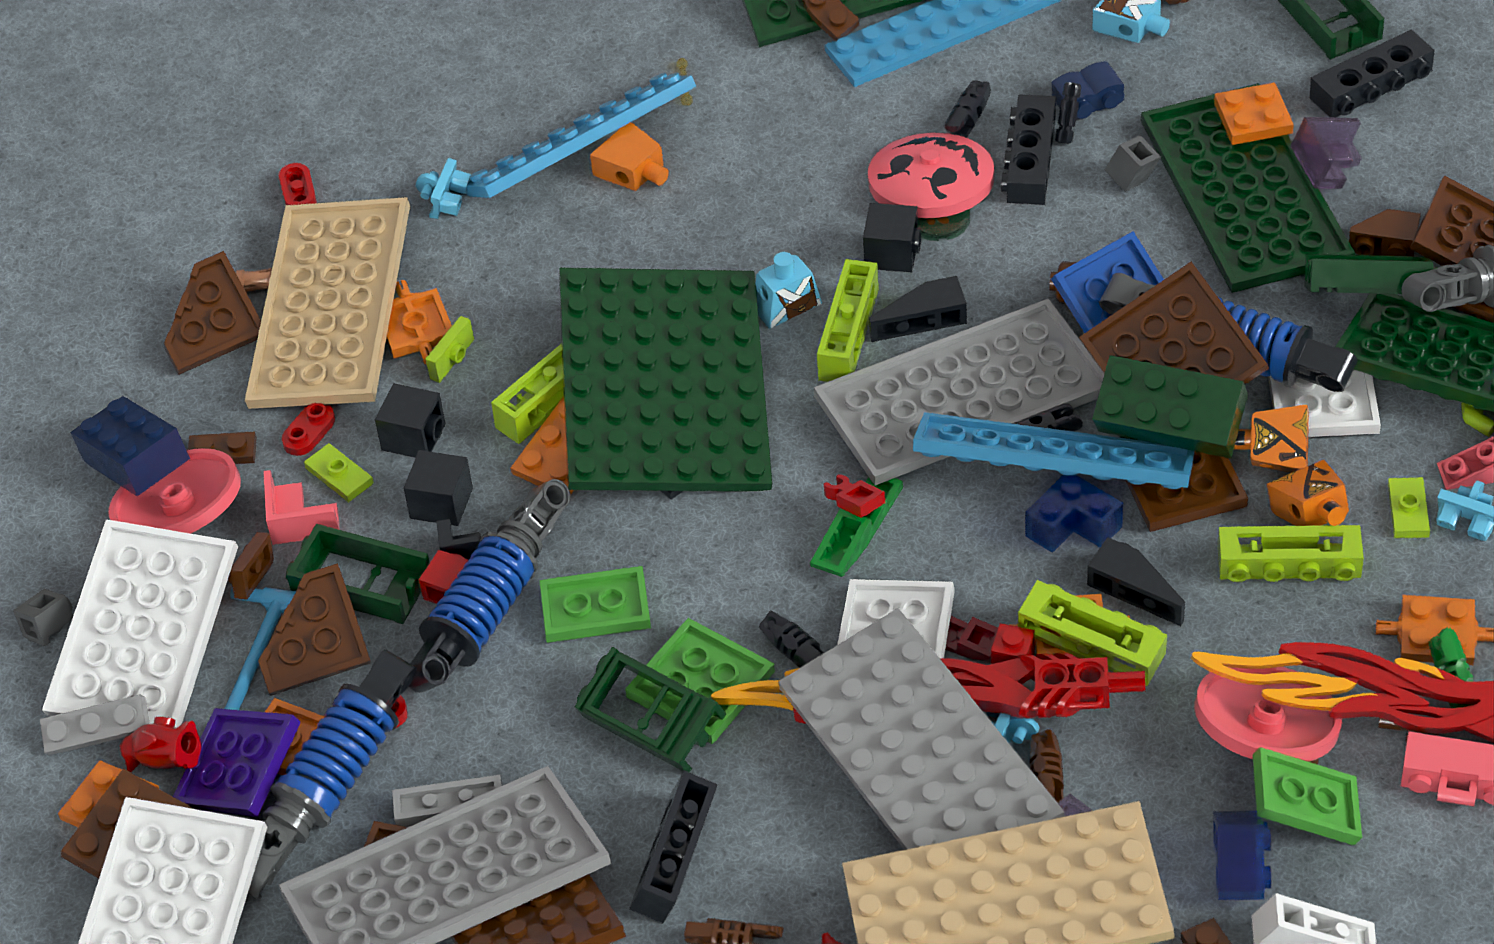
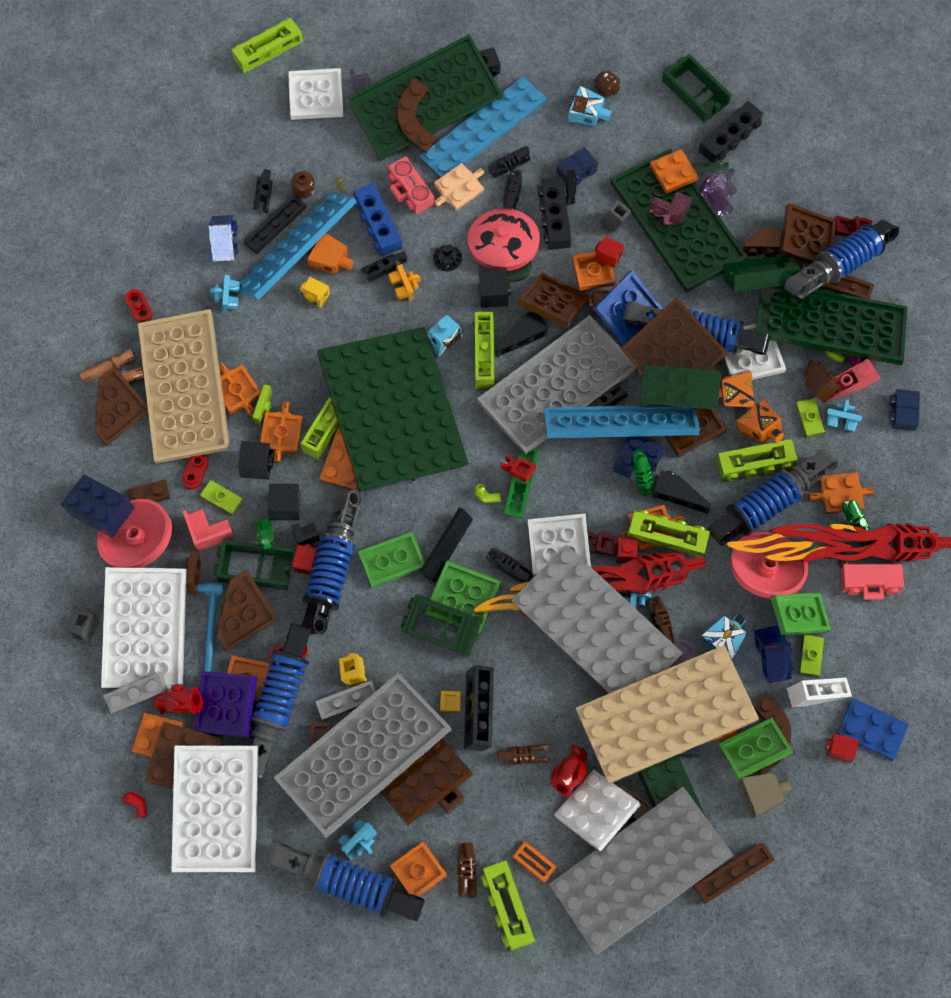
camera: 20 degrees left, 20 degrees up
(42, 893) = (138, 802): none -> red arm
(237, 257) = (101, 368): none -> nougat pin
(389, 523) = (264, 532): none -> green hinge
(462, 109) = (222, 233): none -> clear blue brick
(468, 391) = (282, 431): none -> orange plate
(471, 753) = (350, 676): none -> yellow brick
(551, 60) = (263, 190): none -> black hinge
(557, 109) = (275, 224): none -> black tile
(591, 204) = (315, 291): none -> yellow brick
(618, 57) = (303, 184): none -> reddish brown head
(629, 835) = (450, 701): none -> yellow tile
(696, 594) = (446, 545): none -> black tile
(718, 186) = (384, 266): none -> black hinge
(726, 120) = (369, 196): none -> blue brick
(756, 211) = (405, 290): none -> light orange hips
(787, 538) = (484, 496): none -> lime arm
(801, 89) = (413, 187): none -> coral piece
(827, 198) = (448, 264): none -> black gear
(878, 95) = (458, 186): none -> light nougat plate
(977, 68) = (510, 162): none -> black hinge
(988, 265) = (553, 300): none -> reddish brown plate
(1071, 232) = (591, 272): none -> orange plate
(1073, 536) = (643, 473): none -> green hinge
(1104, 204) = (609, 251): none -> red brick
(1166, 812) = (725, 633): none -> torso
(1234, 167) = (672, 212): none -> clear pink brick
(1303, 607) = (771, 498): none -> piece
(1316, 873) = (811, 655): none -> lime plate
(1318, 109) = (710, 166): none -> clear green tile
(1438, 449) = (819, 382): none -> reddish brown slope

